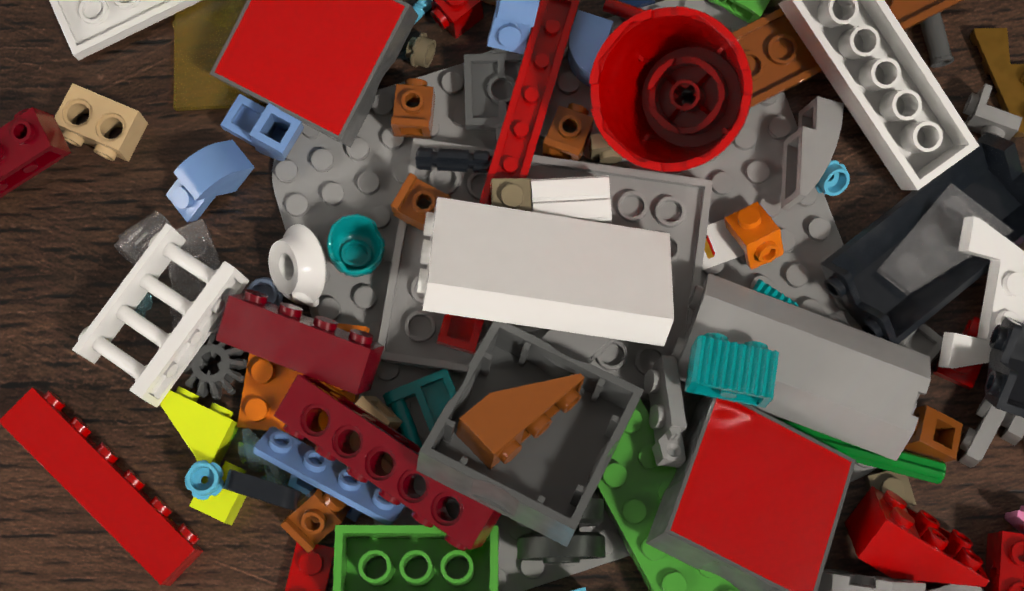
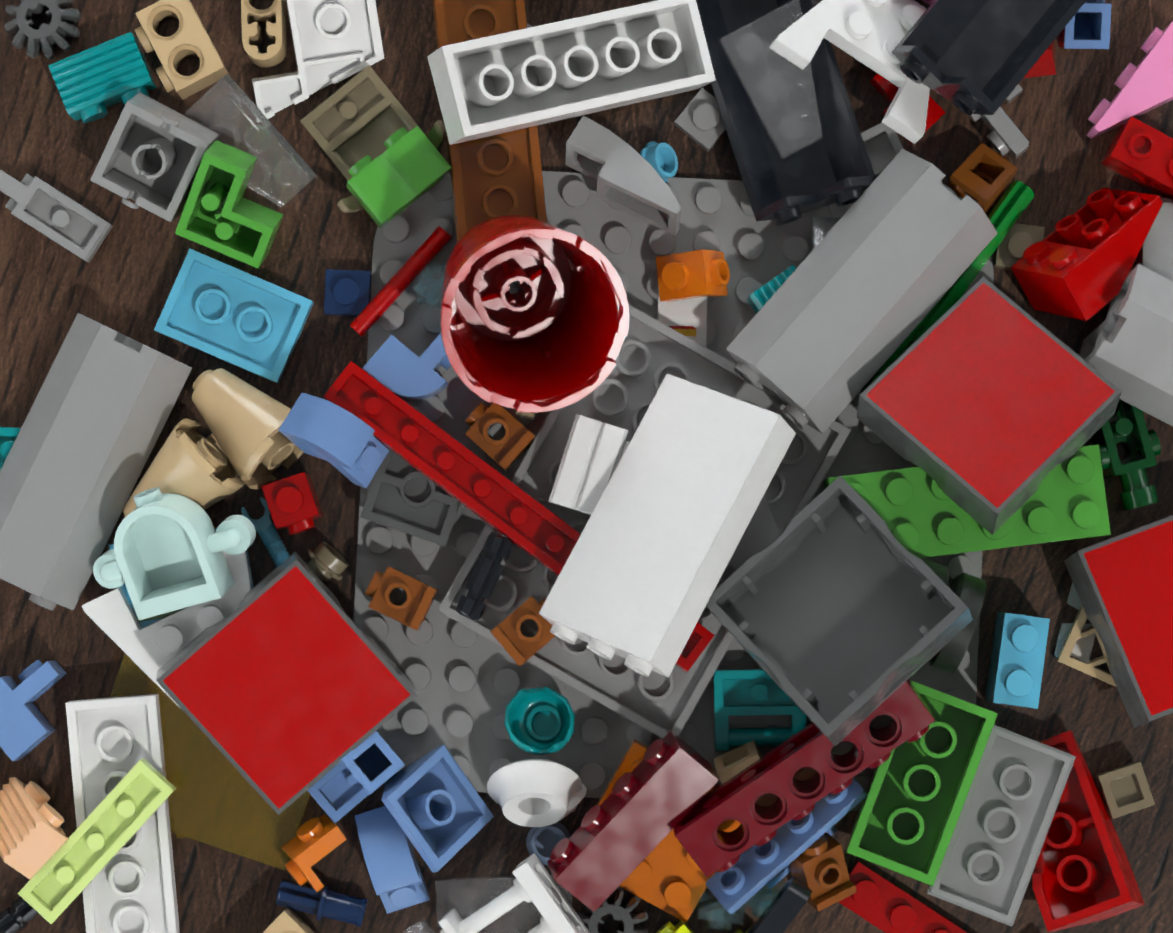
camera: 75 degrees left, 10 degrees up
(157, 144) = (321, 903): none -> dark blue axle
(201, 116) = (311, 844): none -> orange bracket
(258, 194) = (435, 806): none -> medium blue slope
(509, 416) = (816, 629): dark orange slope -> none
(511, 193) = (559, 529): dark tan plate -> none
(666, 411) = (861, 456): light grey hinge -> none
(732, 370) = (851, 374): teal brick -> none
(877, 200) = (702, 120): none -> light grey plate

